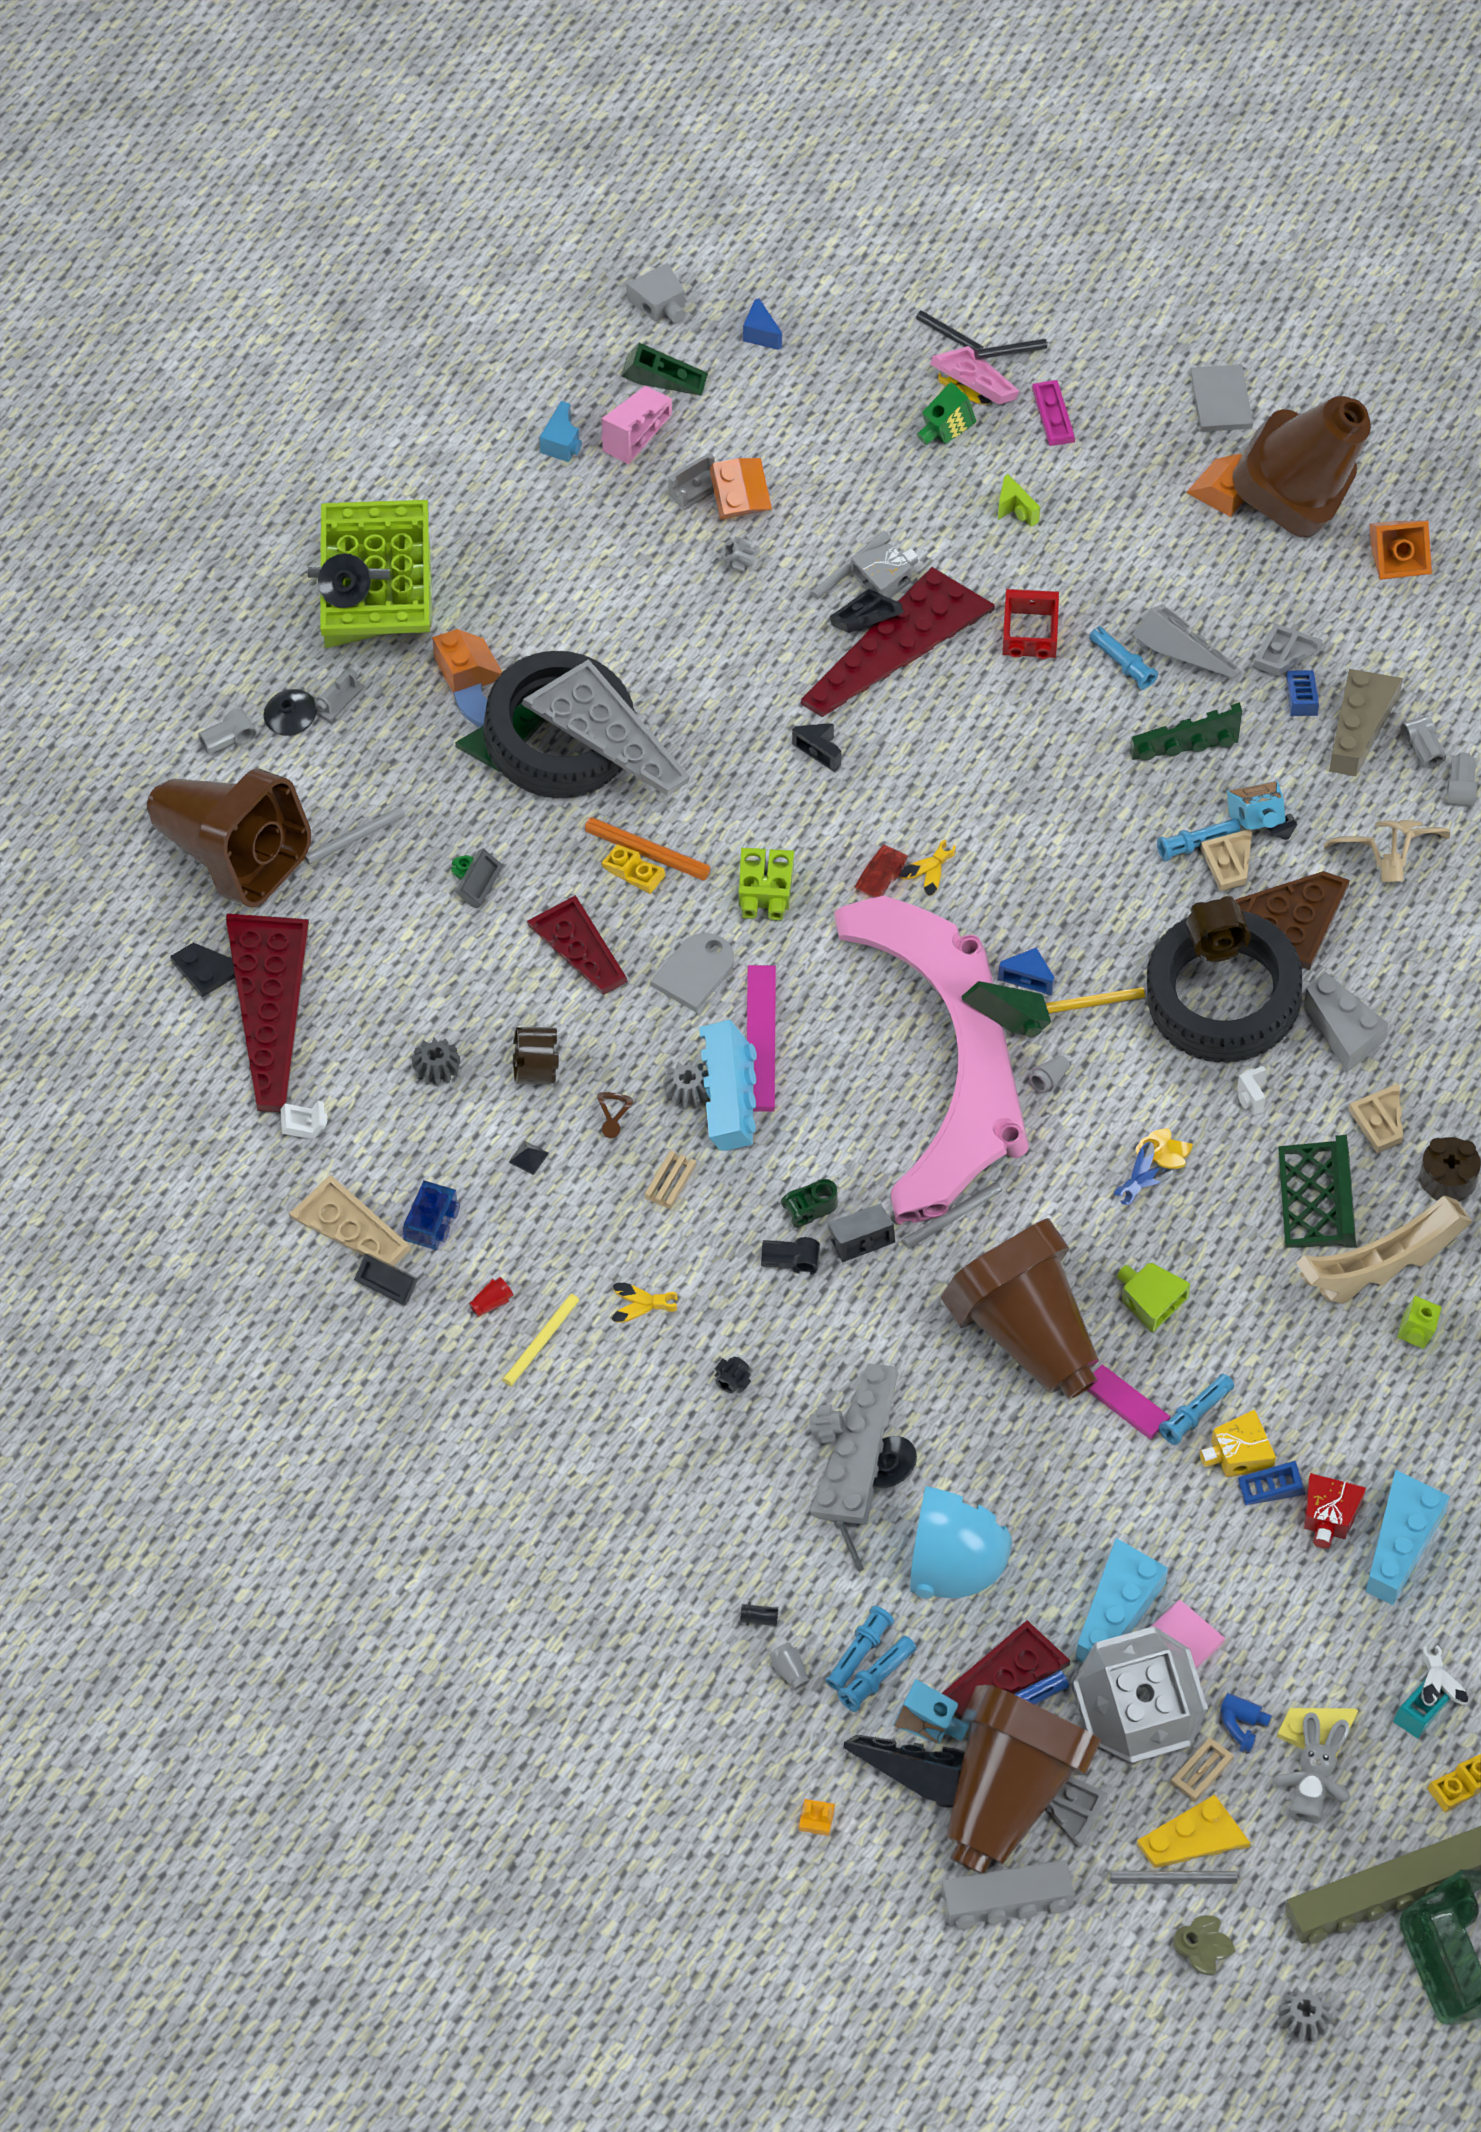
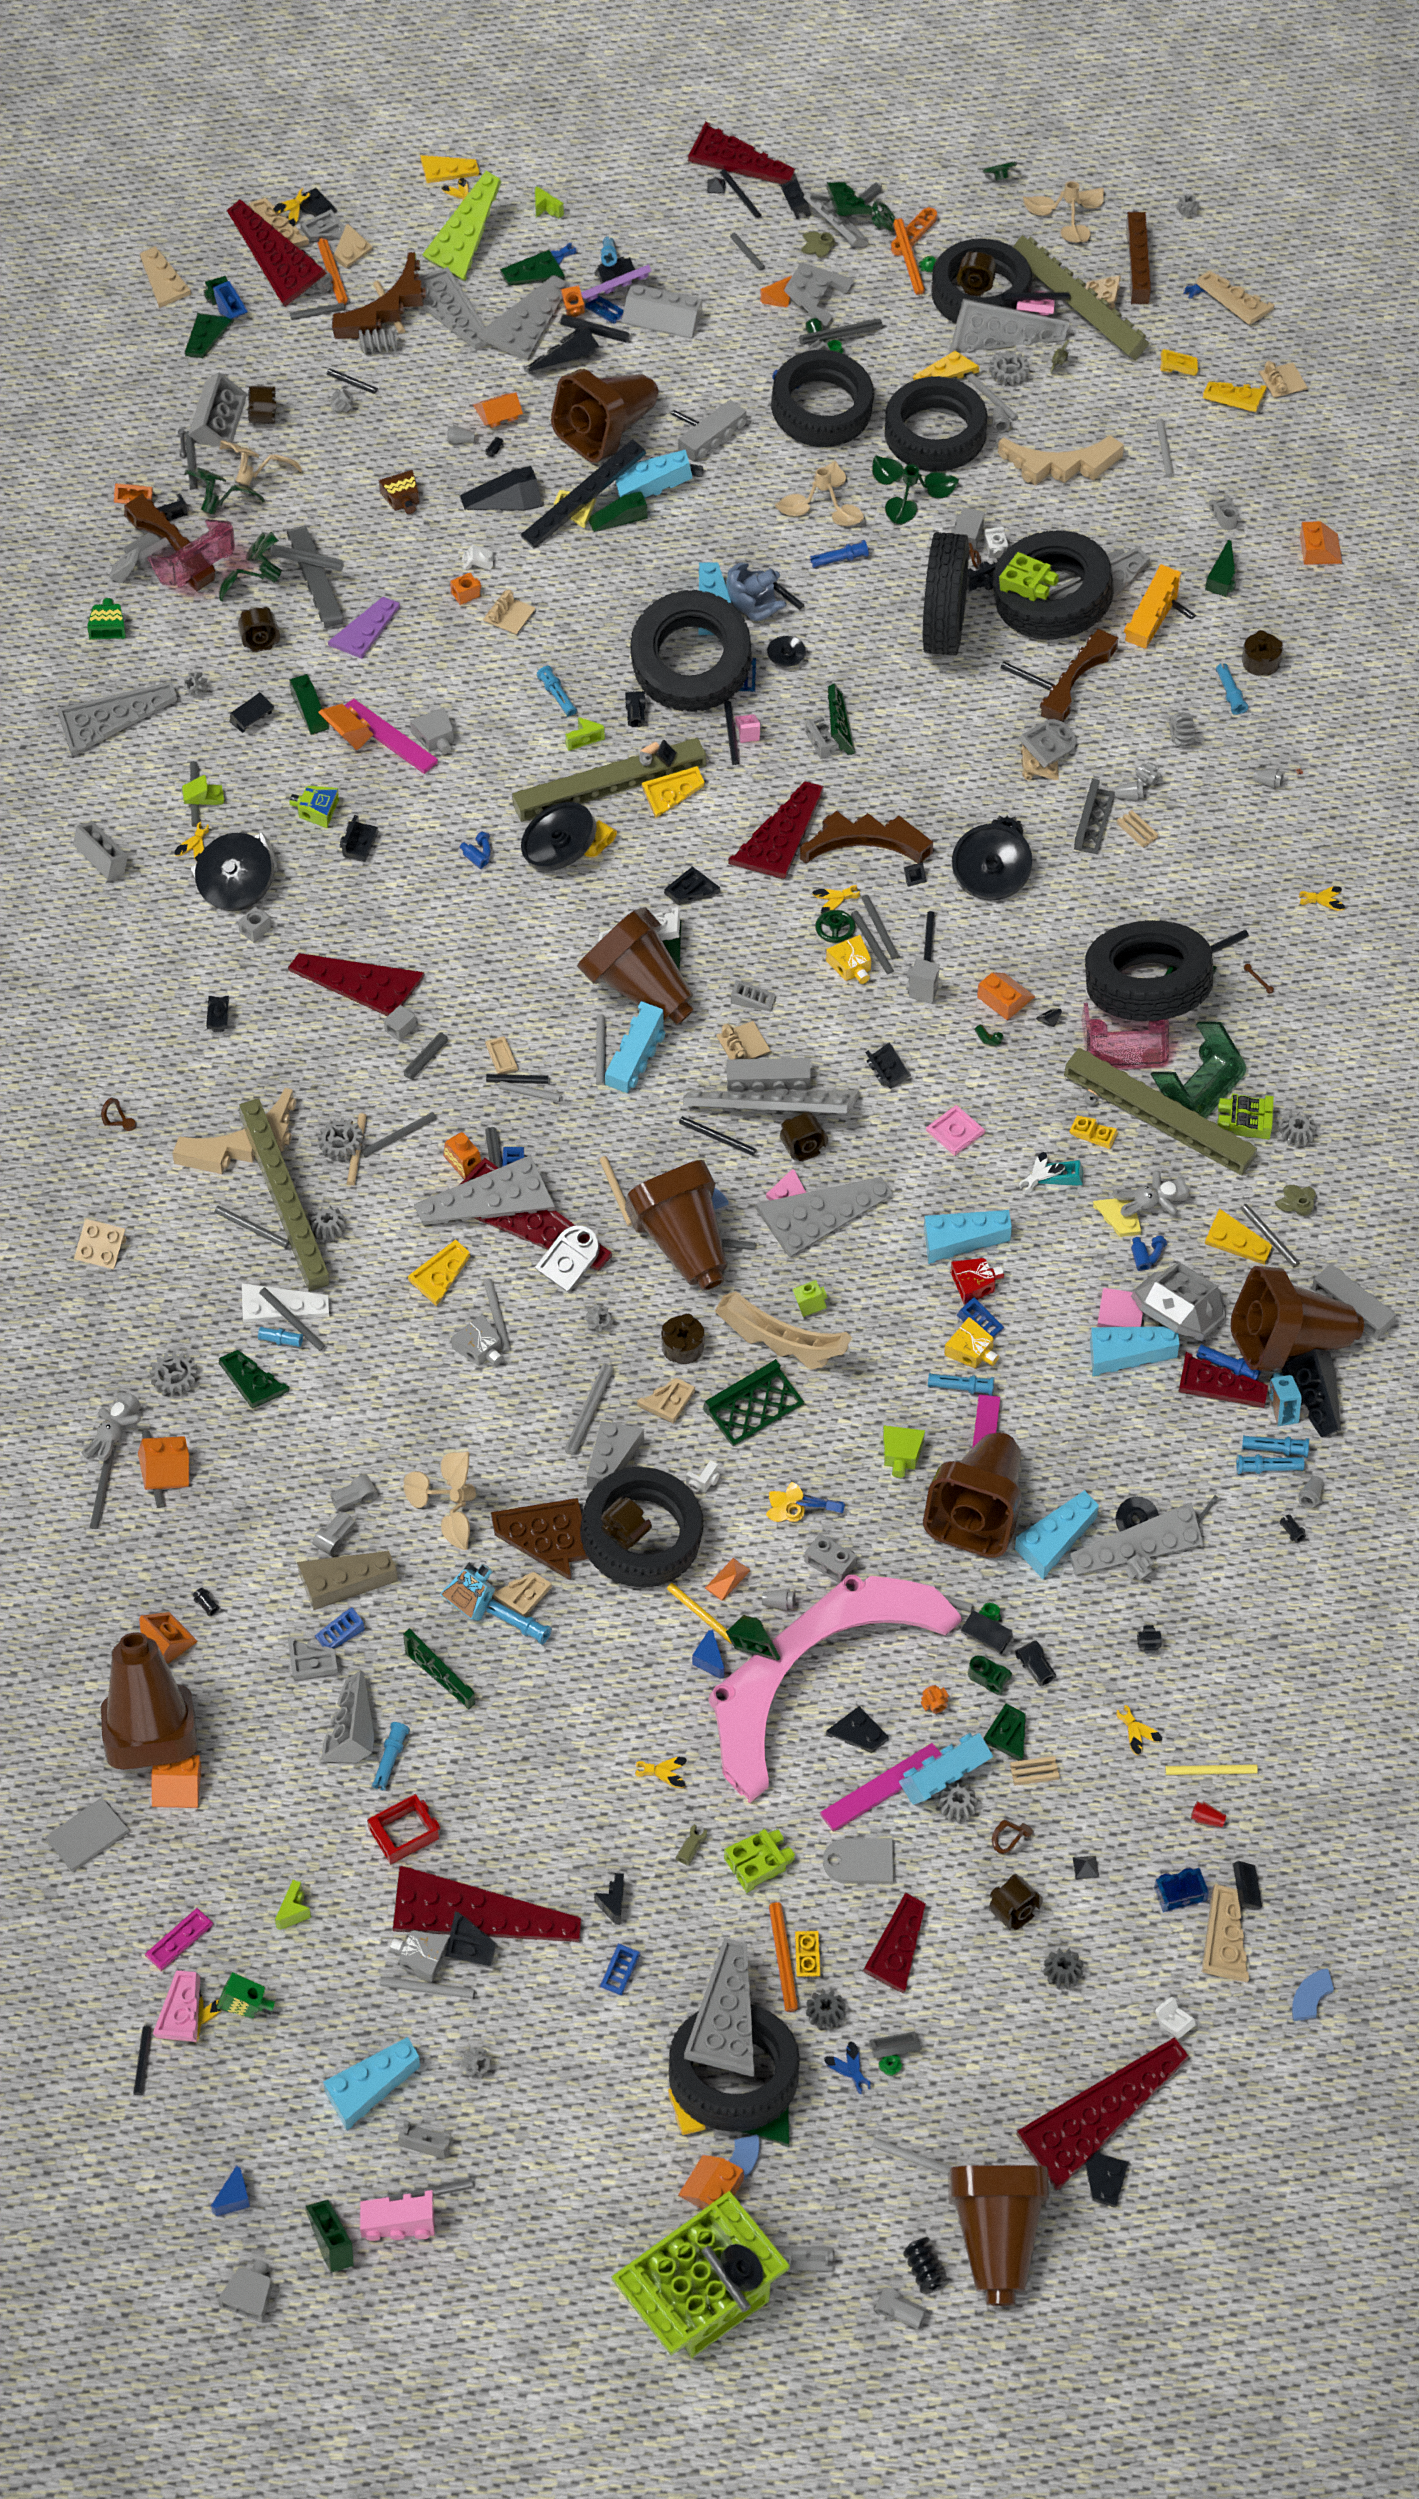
camera: 125 degrees left, 0 degrees up
(229, 1258) = (1310, 1993): none -> medium blue tile
(234, 769) = (923, 2266): none -> black piece
(293, 719) = (837, 2290): black dish -> none
(490, 836) = (851, 2068): none -> blue piece
(560, 437) = (447, 2268): dark azure arch -> none
(562, 844) = (832, 2016): none -> dark grey gear
(648, 462) = (437, 2190): none -> flat silver bar
(730, 1180) = (1008, 1732): none -> dark green wing
(740, 487) = (417, 2097): orange slope -> none
(750, 730) = (624, 1950): none -> blue slope
(784, 461) = (369, 2081): none -> medium azure wedge
(816, 1817) = (1389, 1423): light orange tile -> none
(820, 1134) = (934, 1699): none -> orange gear
(827, 840) = (690, 1846): none -> olive bar
(840, 1055) = (859, 1730): none -> black wing
(880, 871) = (693, 1792): clear red slope -> none
(886, 1245) = (991, 1611): none -> green plate
(927, 1363) = (1056, 1533): none -> medium azure wedge
(956, 1547) = (1170, 1446): medium azure brick -> none
(1010, 349) = (136, 2001): black bar -> none
(1063, 1145) = (830, 1558): none -> light grey brick
(1113, 1048) = (727, 1579): none -> orange slope
(1186, 1788) = (1194, 1260): tan tile -> none
(1373, 1962) = (1247, 1115): none -> lime hips
(1420, 602) = (206, 1602): none -> black pin
(1423, 1043) = (589, 1409): none -> light grey axle

